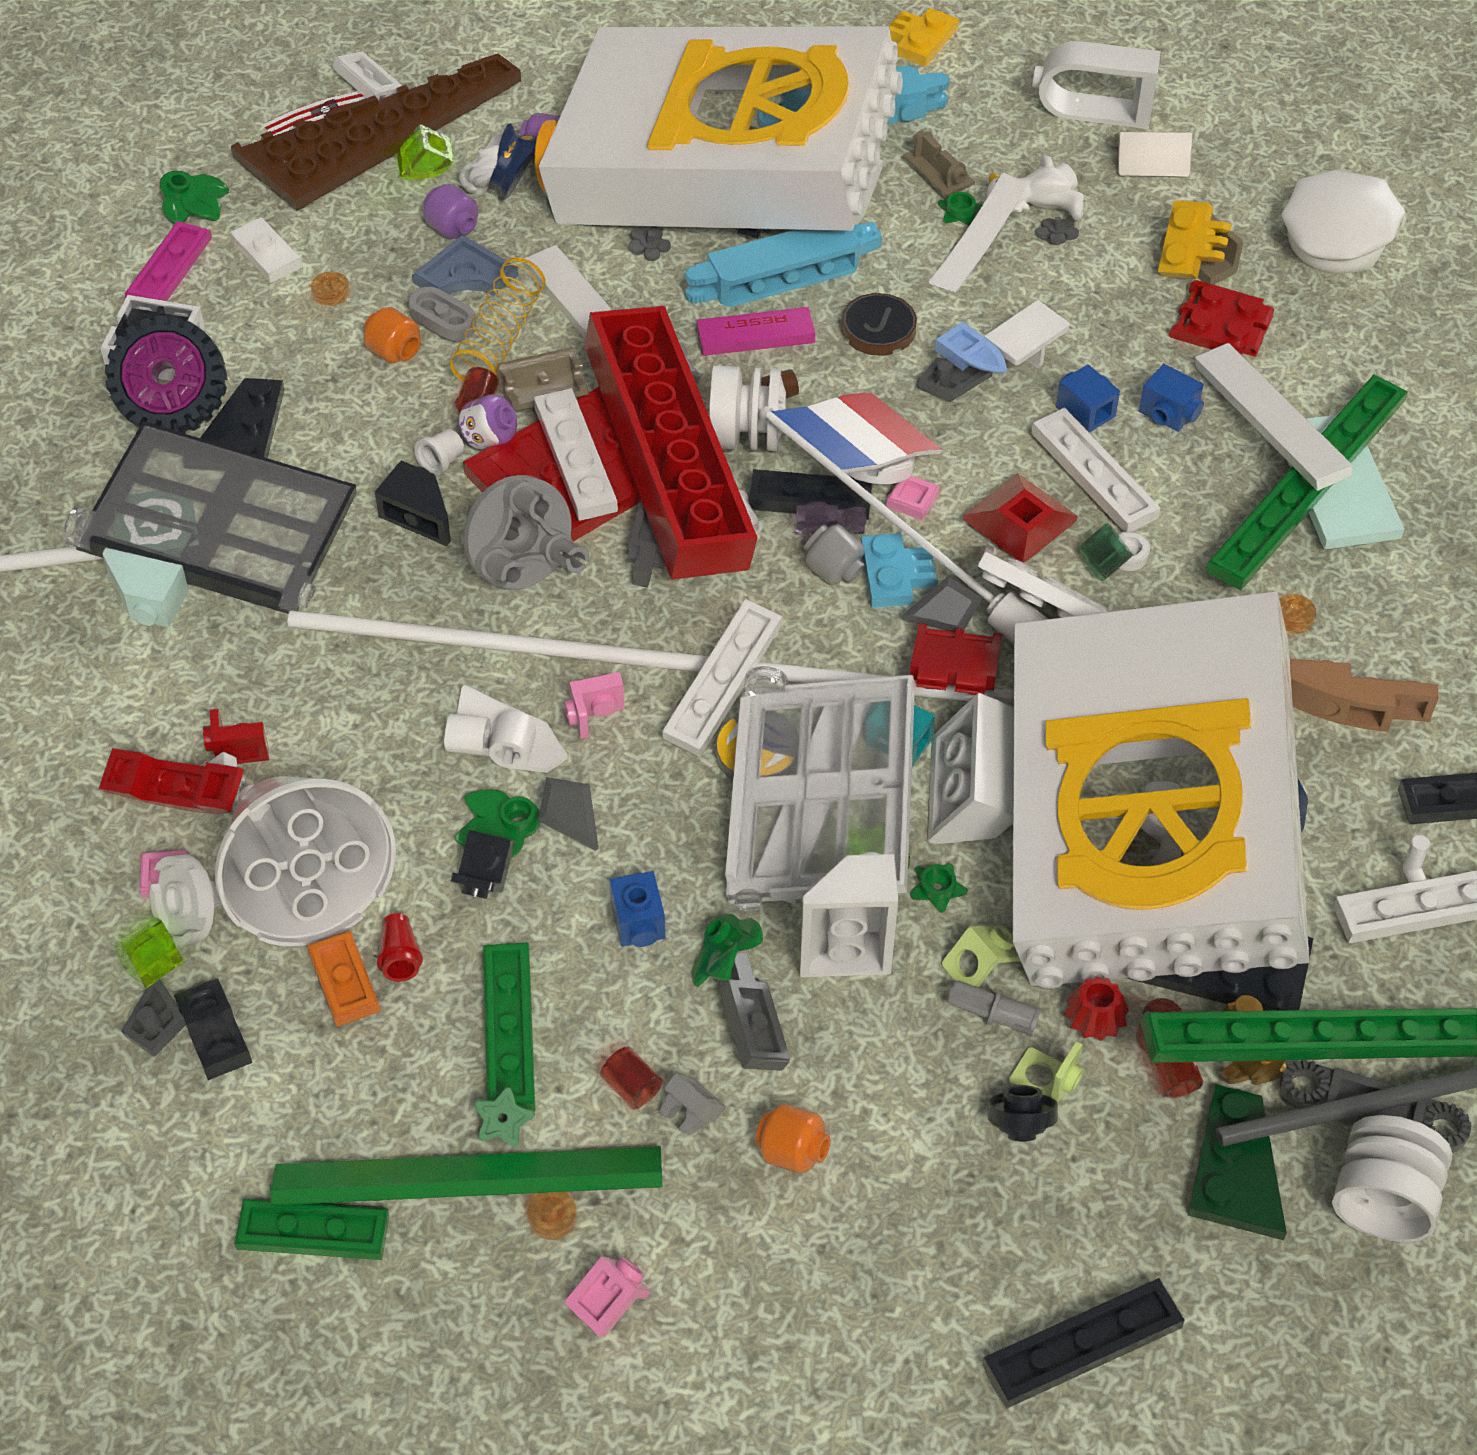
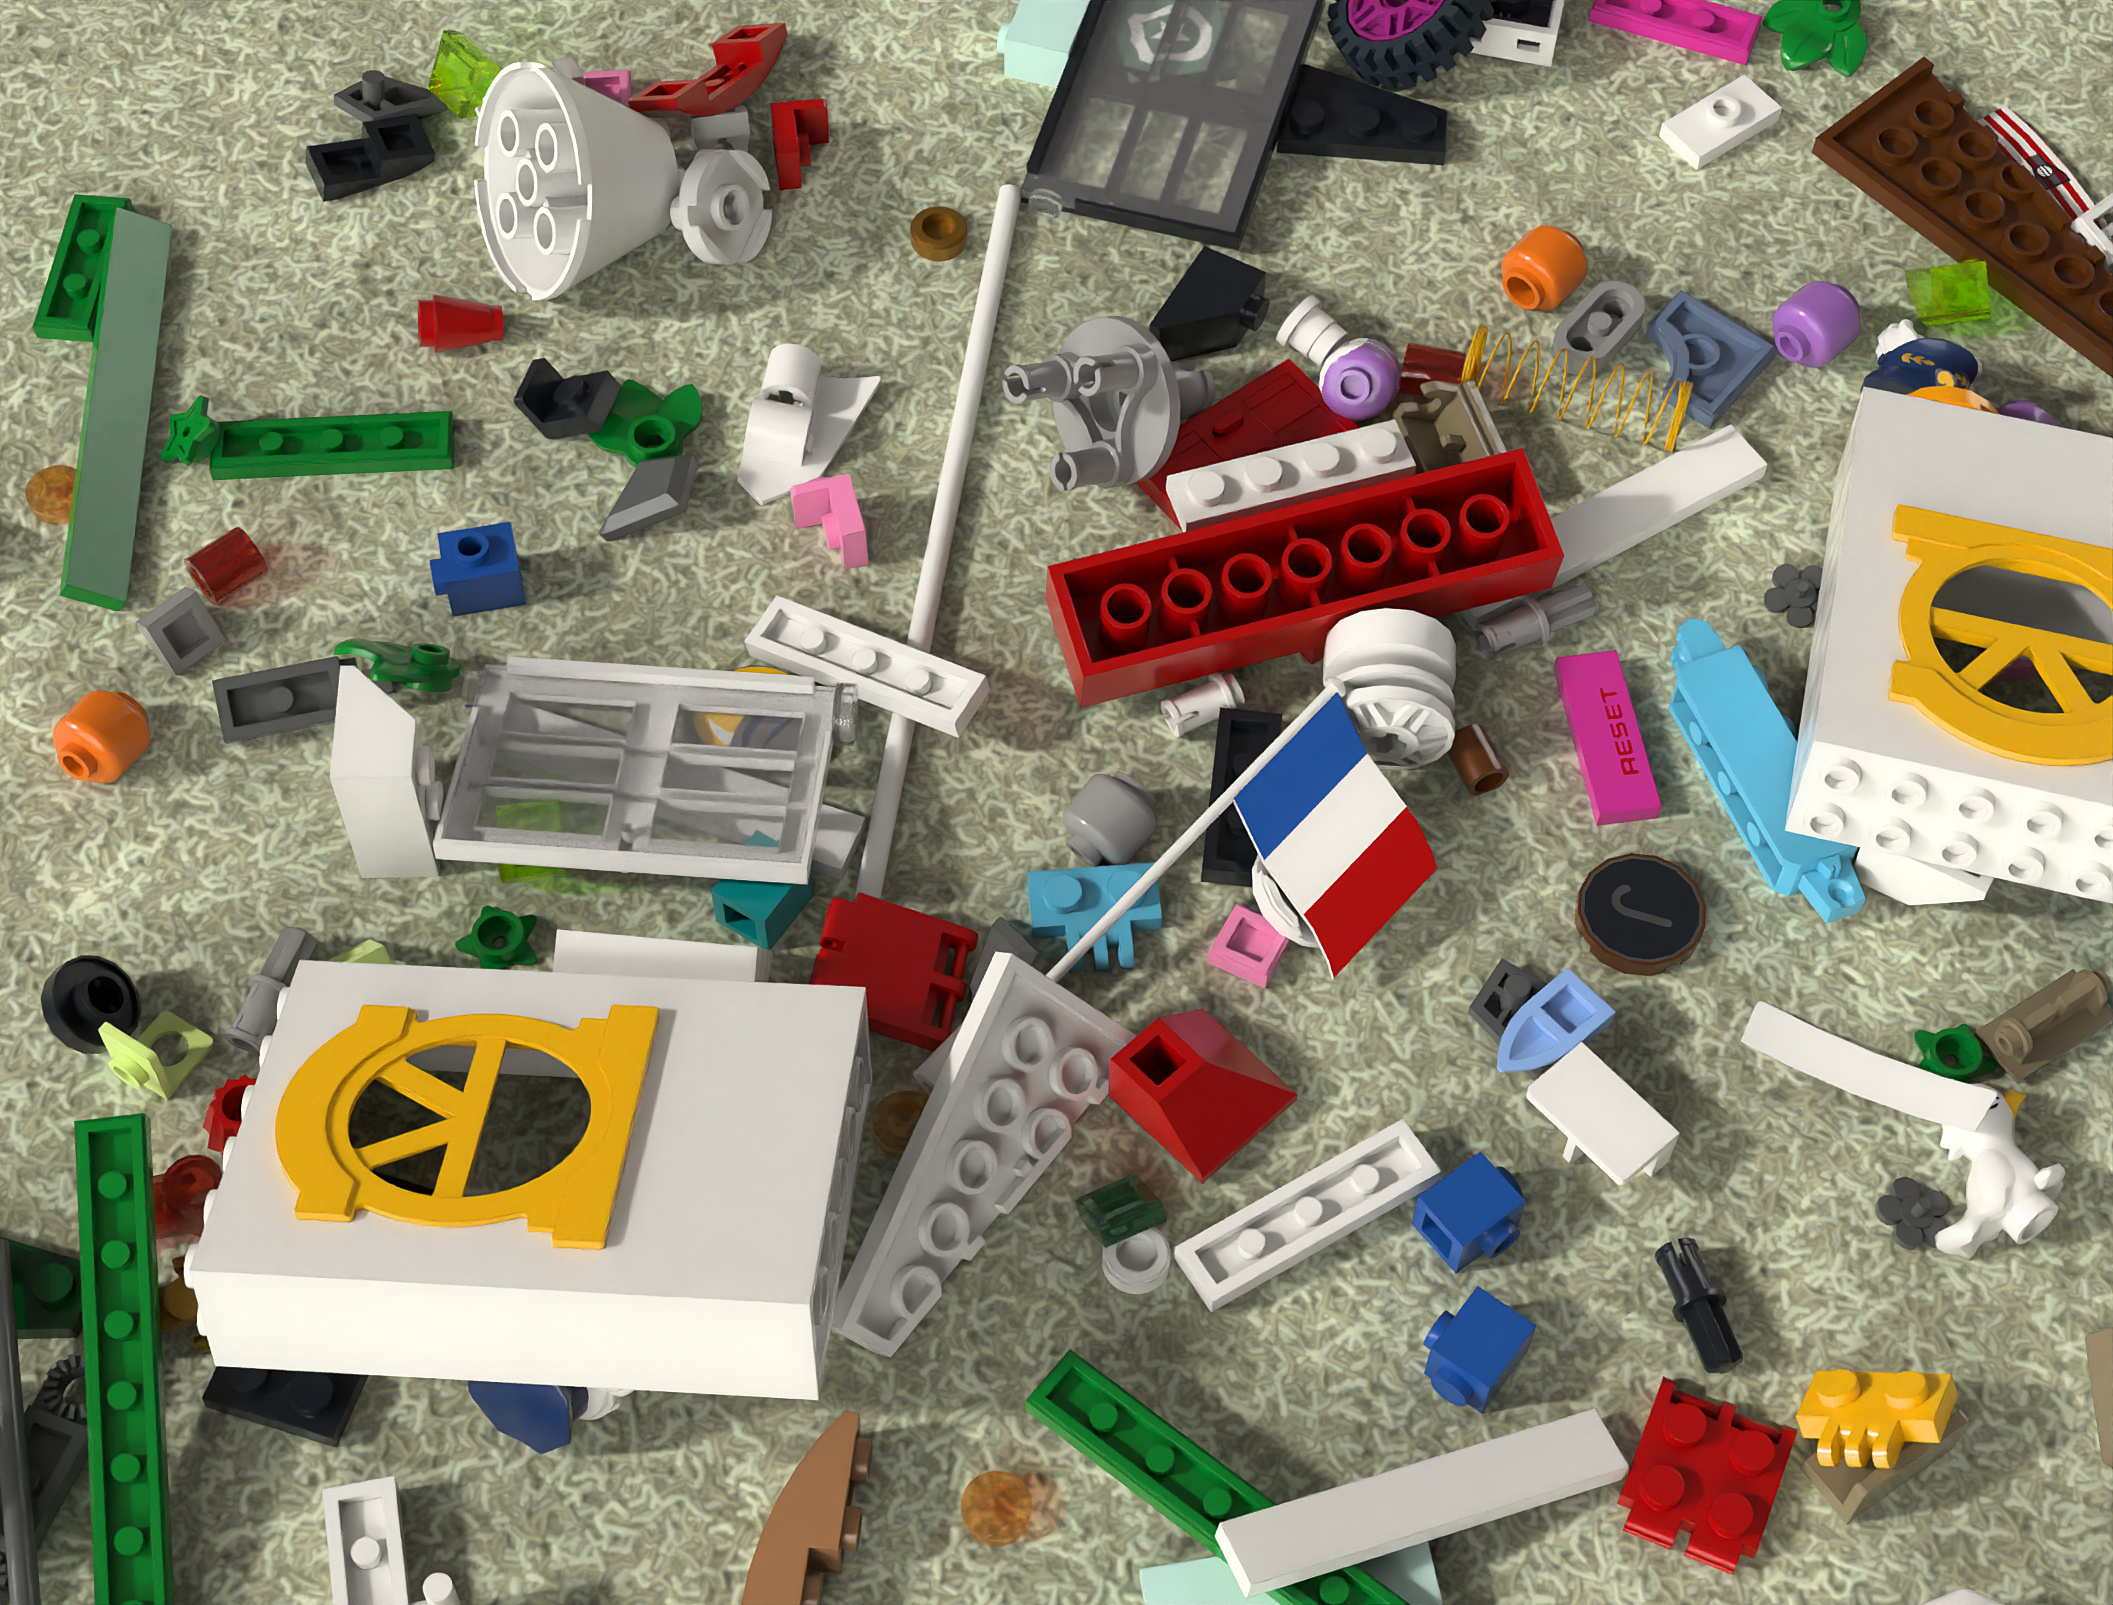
camera: 90 degrees right, 5 degrees up
(298, 762) = (716, 179): none -> white plate
(326, 659) = (938, 233): none -> pearl gold tile
(330, 288) = (1647, 200): clear orange tile -> none
(343, 978) = (419, 271): orange plate -> none
(818, 513) = (1180, 803): clear purple plate -> none
(1128, 311) = (1699, 1306): none -> black axle

